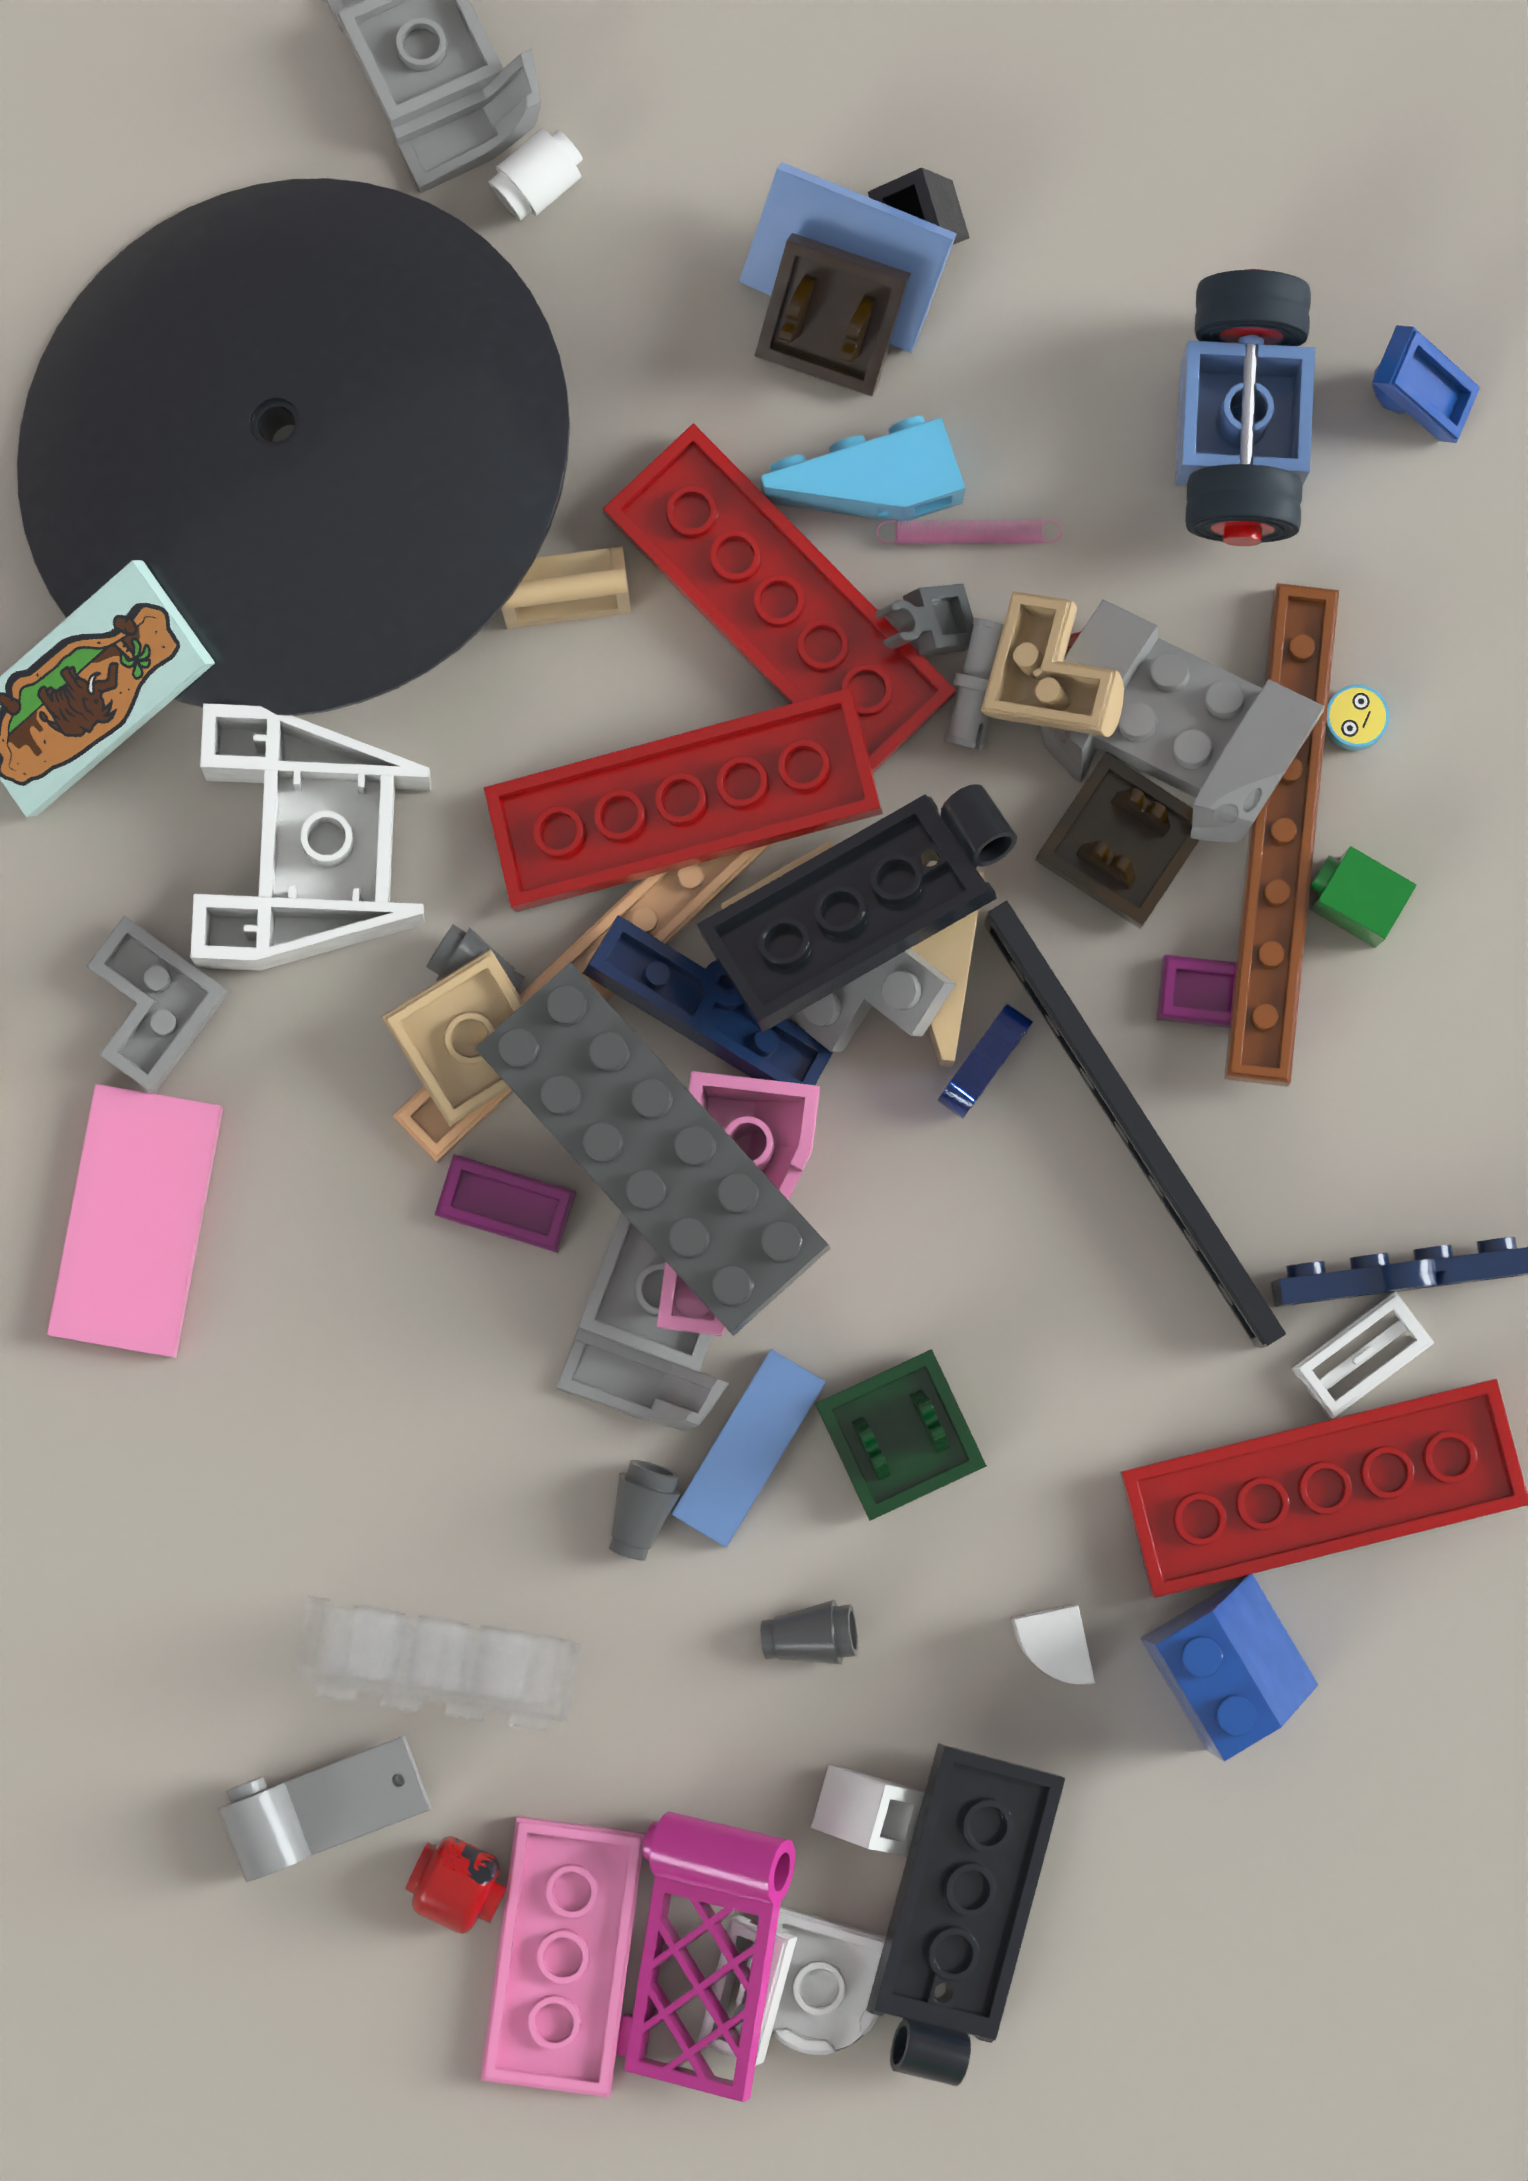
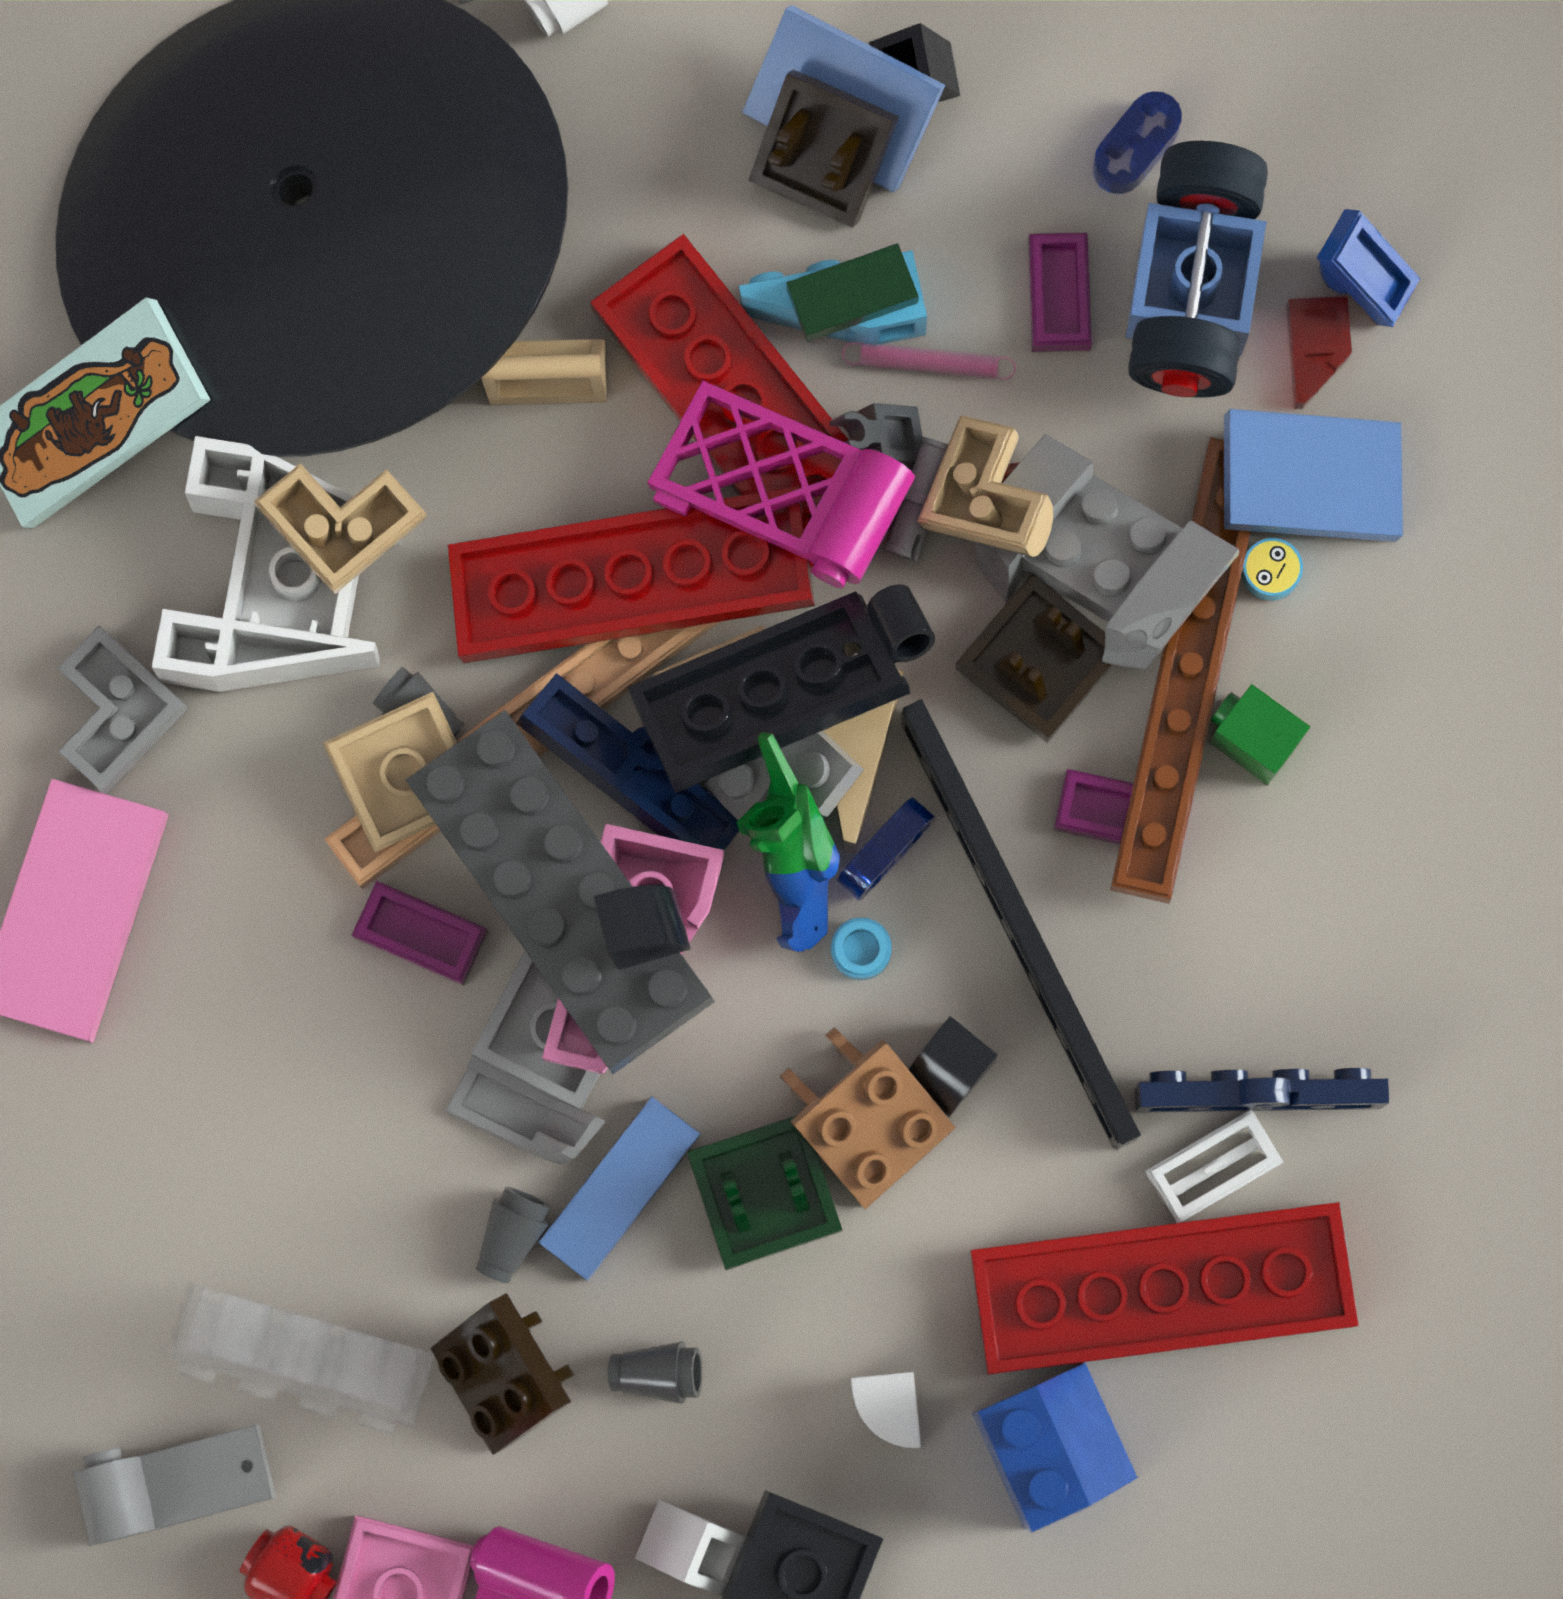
camera: 10 degrees right, 5 degrees down
(373, 800) = (337, 539): none -> tan brick
(652, 1656) = (501, 1373): none -> dark brown plate
(748, 1178) = (641, 924): none -> black brick
(883, 471) = (852, 292): none -> dark green tile
(892, 1075) = (794, 849): none -> green animal
(911, 713) = (854, 504): none -> dark pink piece
(970, 1168) = (861, 948): none -> medium azure tile
(1003, 1350) = (871, 1121): none -> medium nougat plate
(1078, 1283) = (952, 1065): none -> black brick
(1099, 442) = (1059, 292): none -> magenta tile
(1152, 263) = (1127, 134): none -> clear blue beam
(1378, 468) = (1317, 343): none -> clear red tile
(1389, 613) = (1312, 475): none -> medium blue tile

